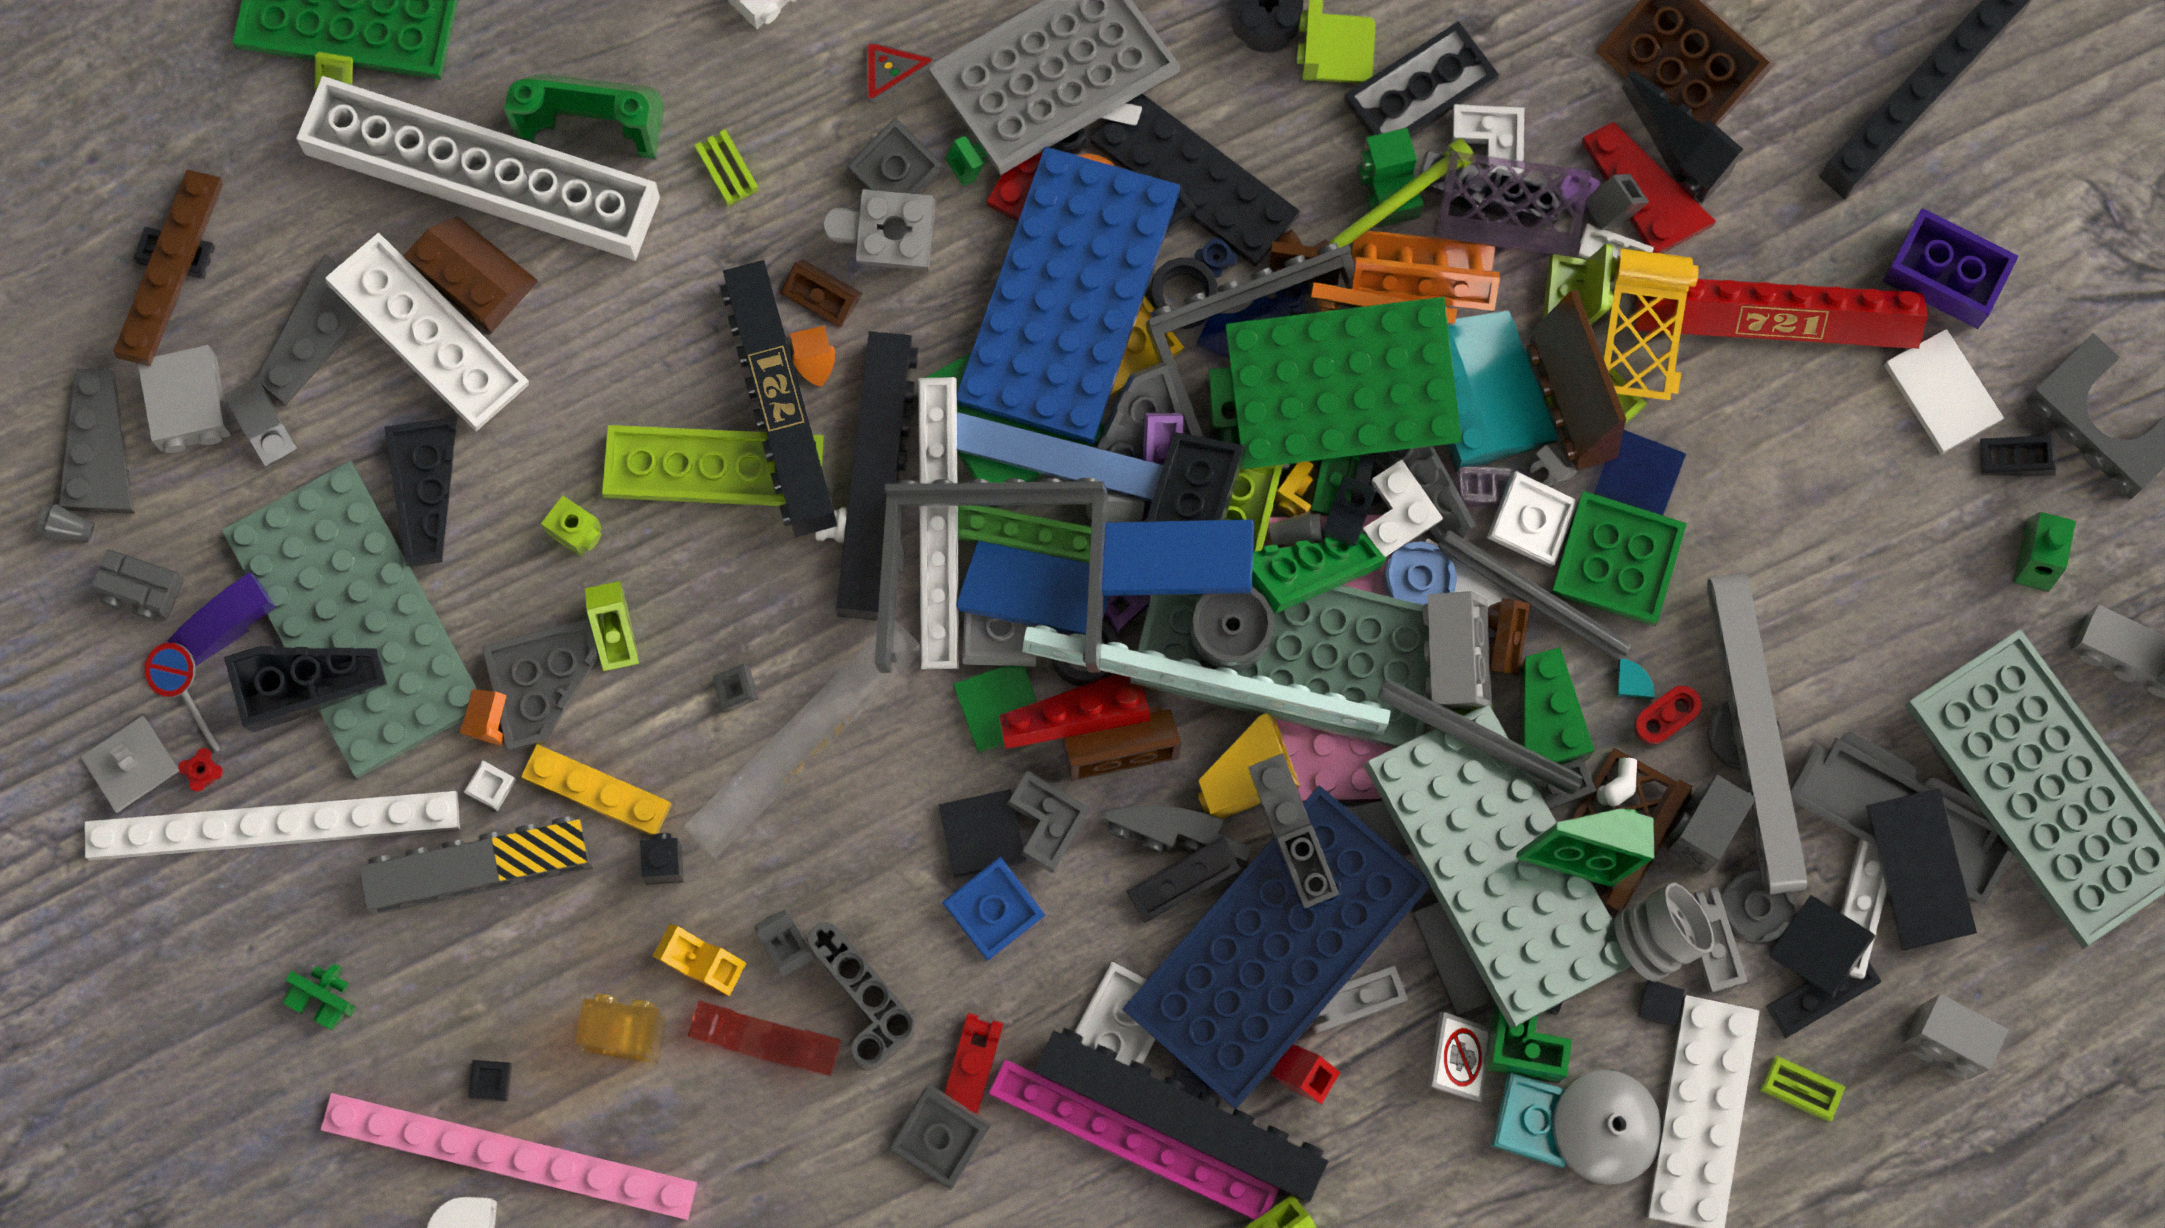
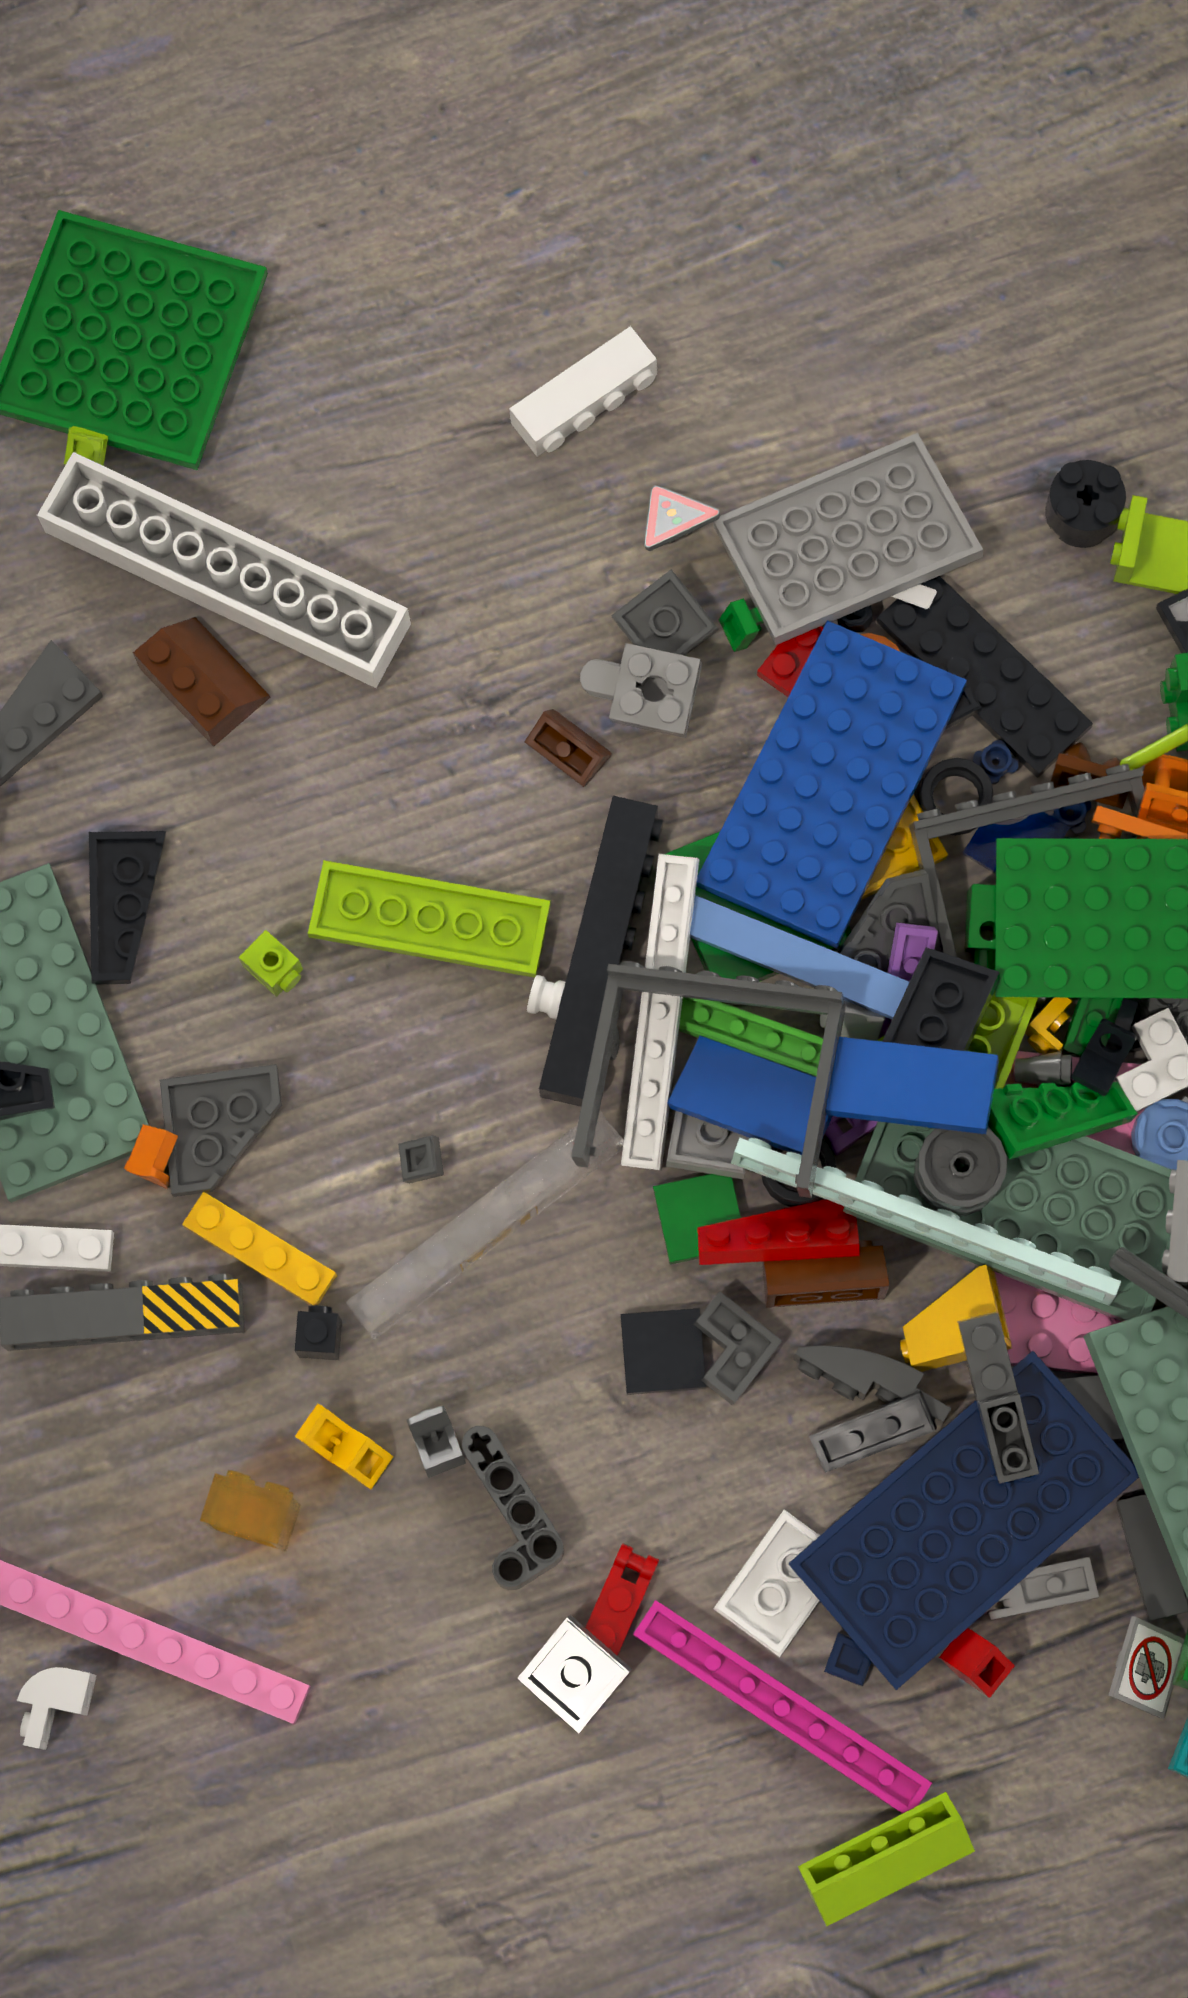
camera: 15 degrees right, 0 degrees up
(427, 331) = (146, 737): white plate -> none
(490, 786) = (148, 1229): white tile -> none
(490, 1080) = (106, 1545): black tile -> none
(537, 100) = (295, 503): green windscreen -> none
(611, 625) = (298, 1075): lime slope -> none
(713, 143) = (475, 573): lime tile -> none
(764, 1039) = (402, 1542): clear red slope -> none
(779, 398) = (508, 857): black brick -> none
(813, 354) = (550, 812): orange tile -> none
(993, 908) = (664, 1435): blue plate -> none
(1182, 1116) = (837, 1689): black brick -> none

